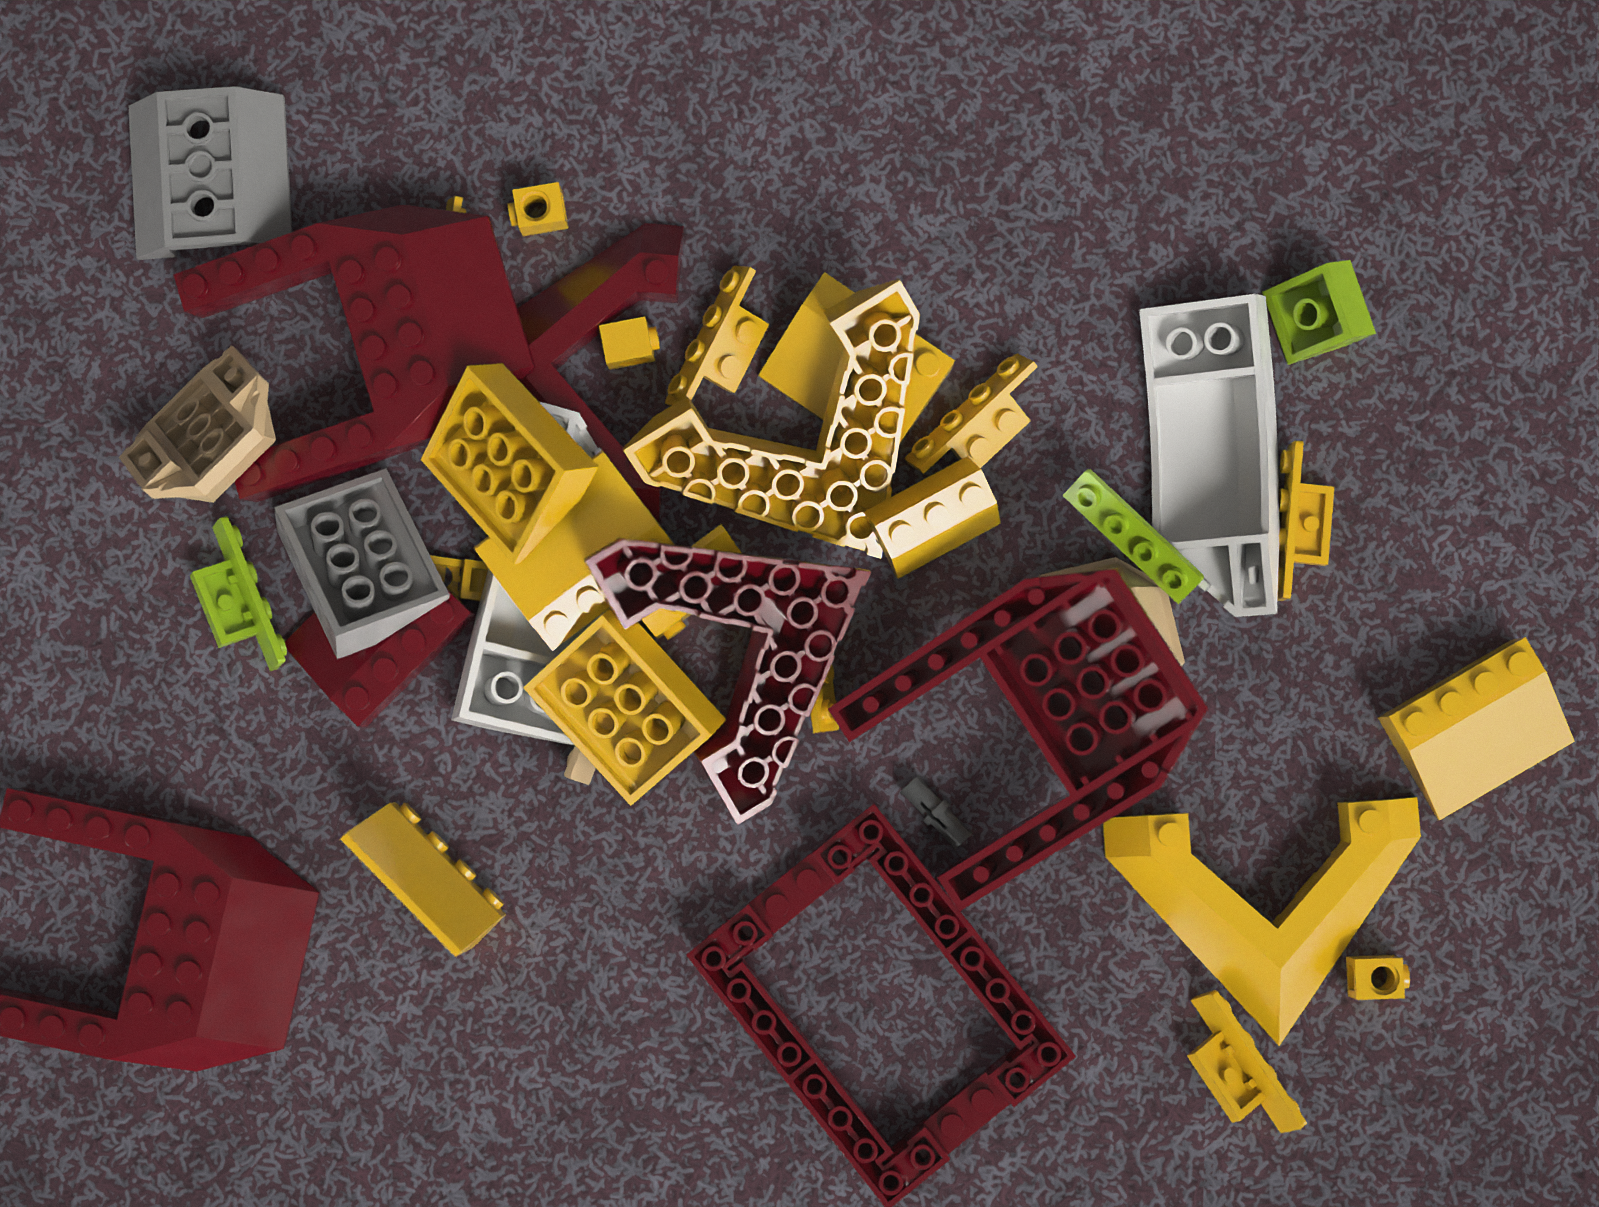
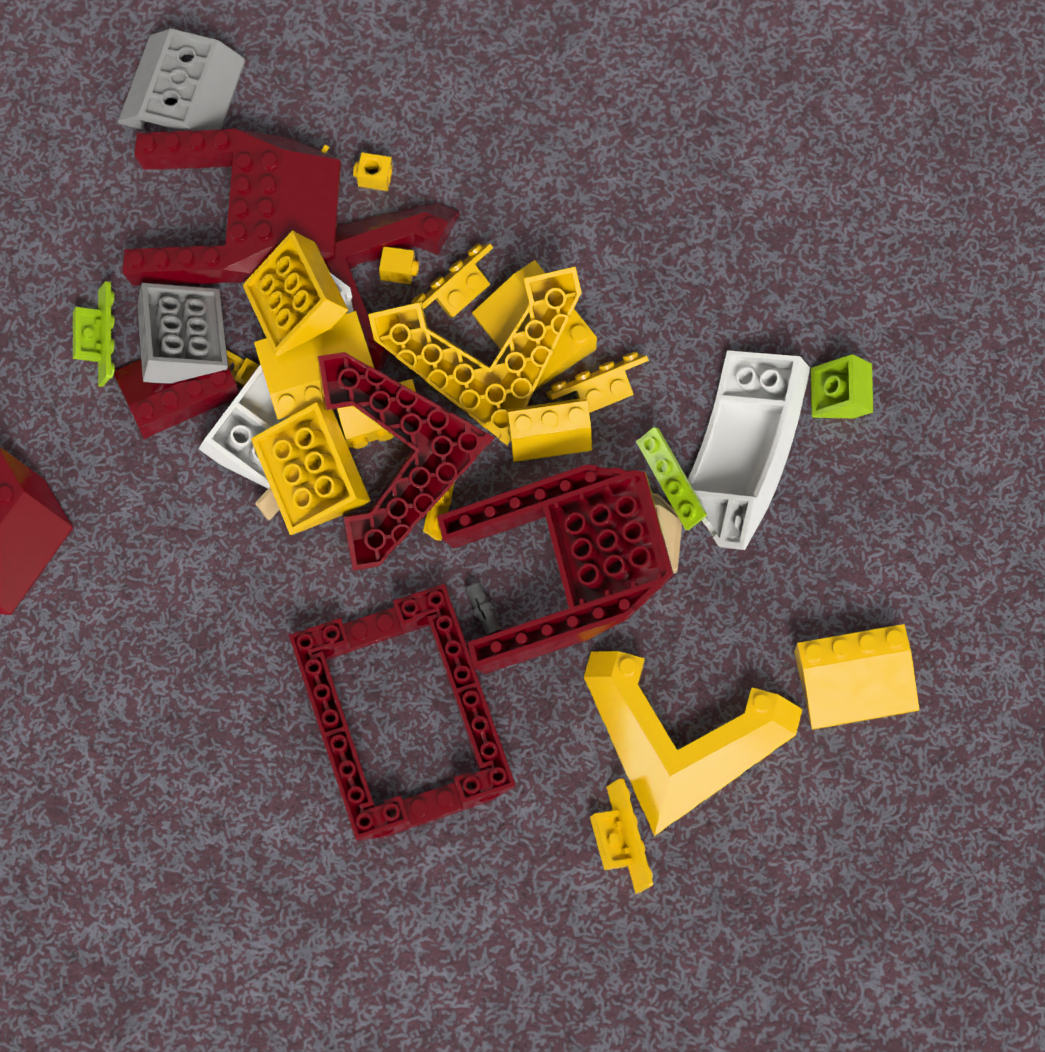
camera: 20 degrees right, 15 degrees down
(204, 433) = (119, 228): tan piece -> none
(425, 877) = (145, 532): yellow slope -> none
(1304, 520) = (787, 513): yellow bracket -> none
(1359, 977) = (730, 799): yellow brick -> none

